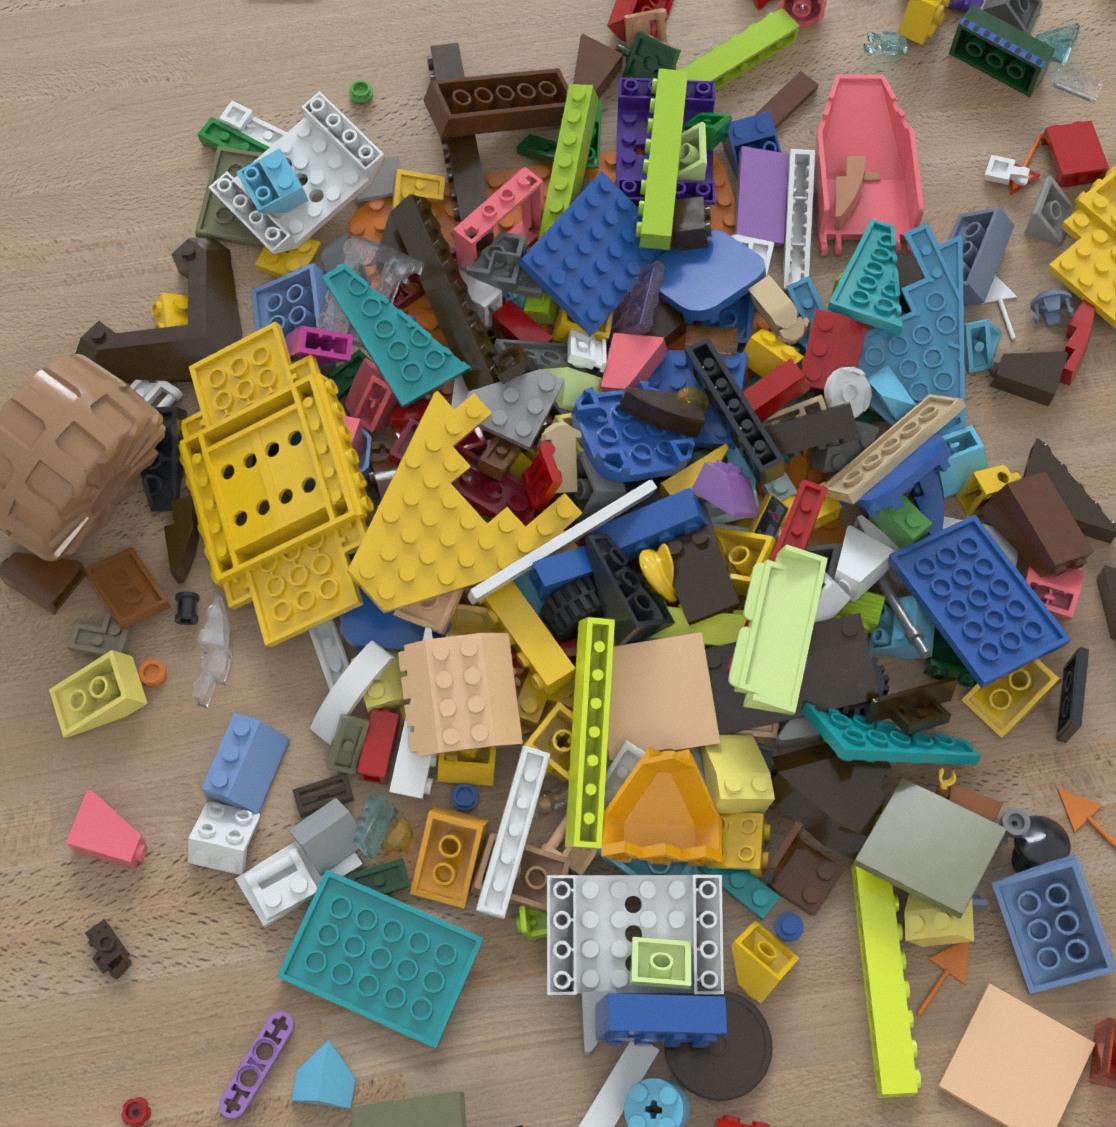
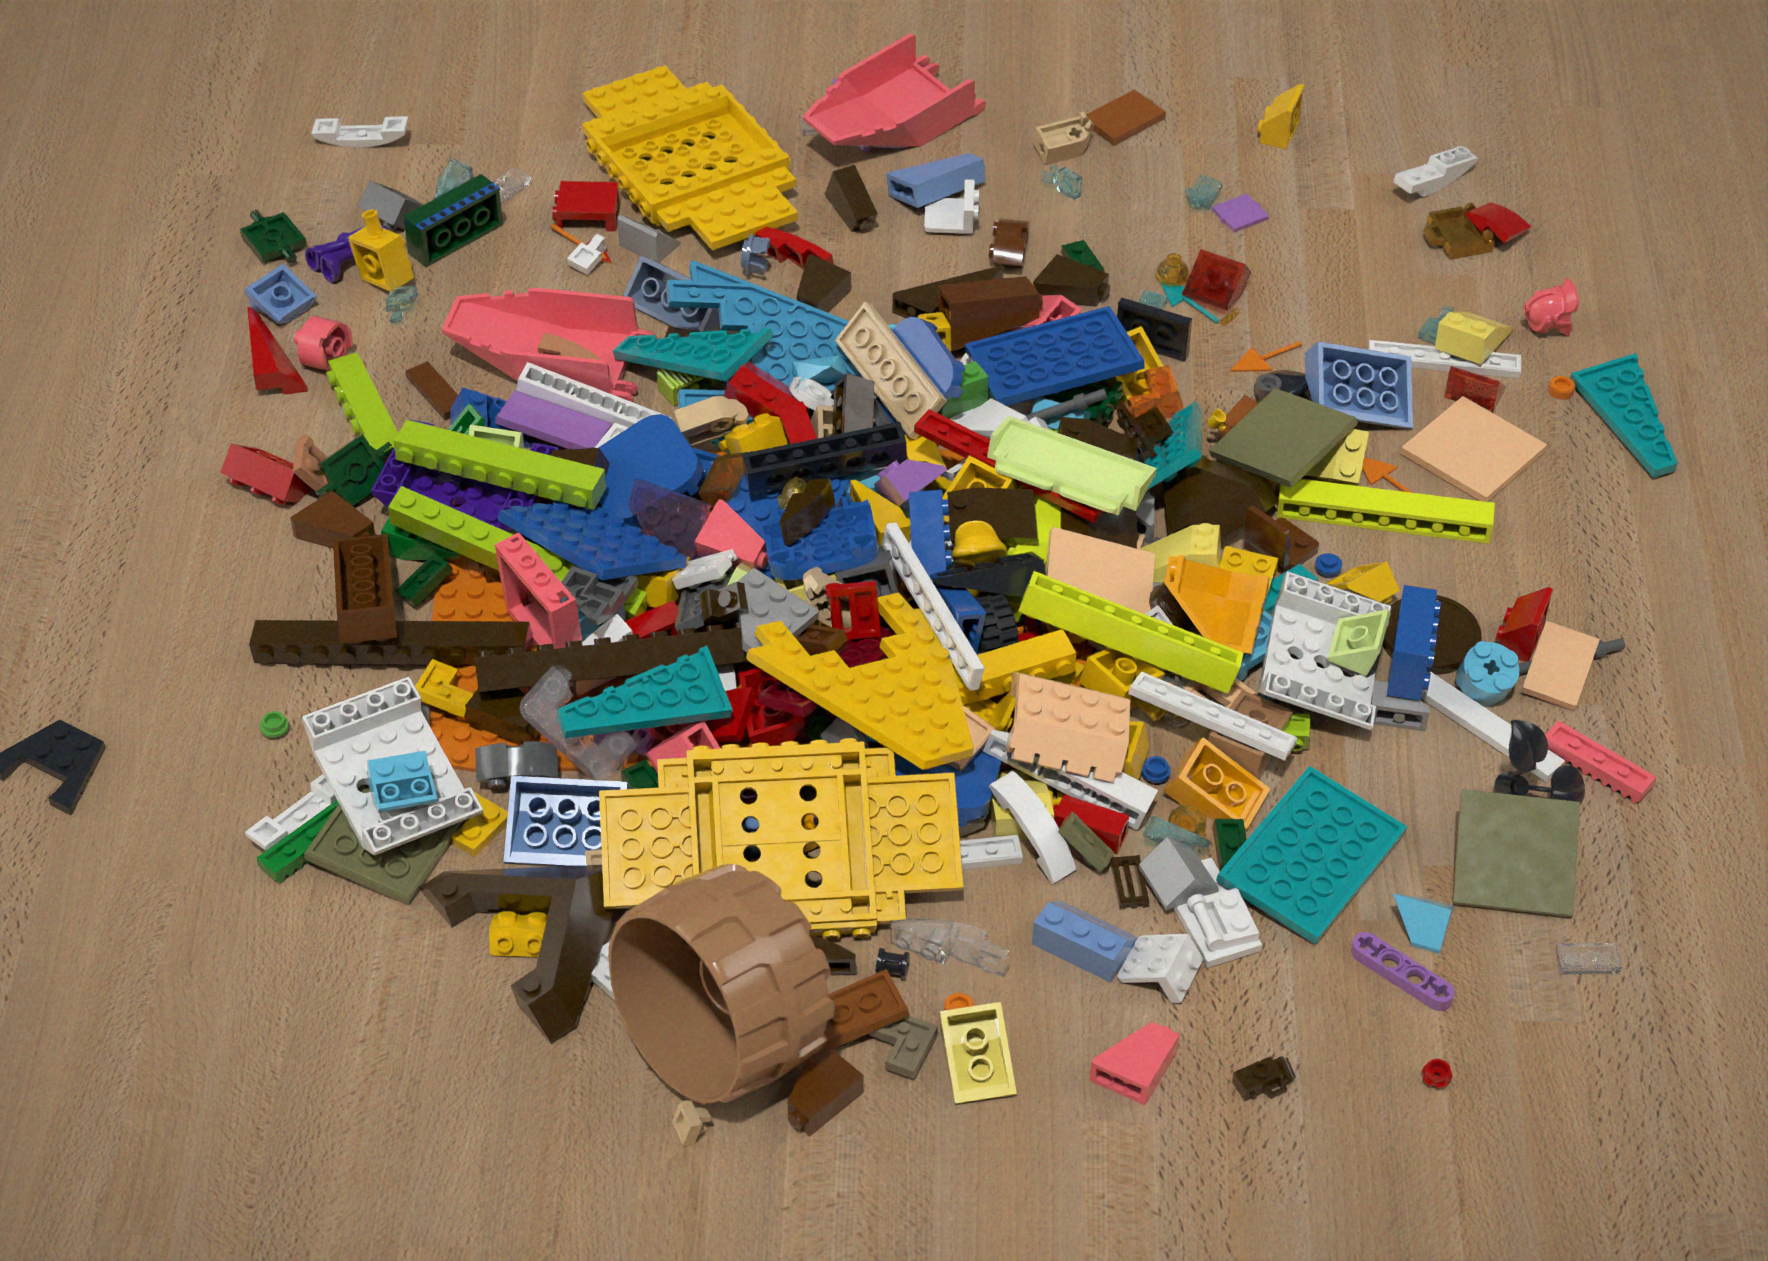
camera: 75 degrees left, 20 degrees down
(323, 344) = (639, 759): dark pink slope -> none
(980, 725) = (1162, 394): none -> clear orange plate

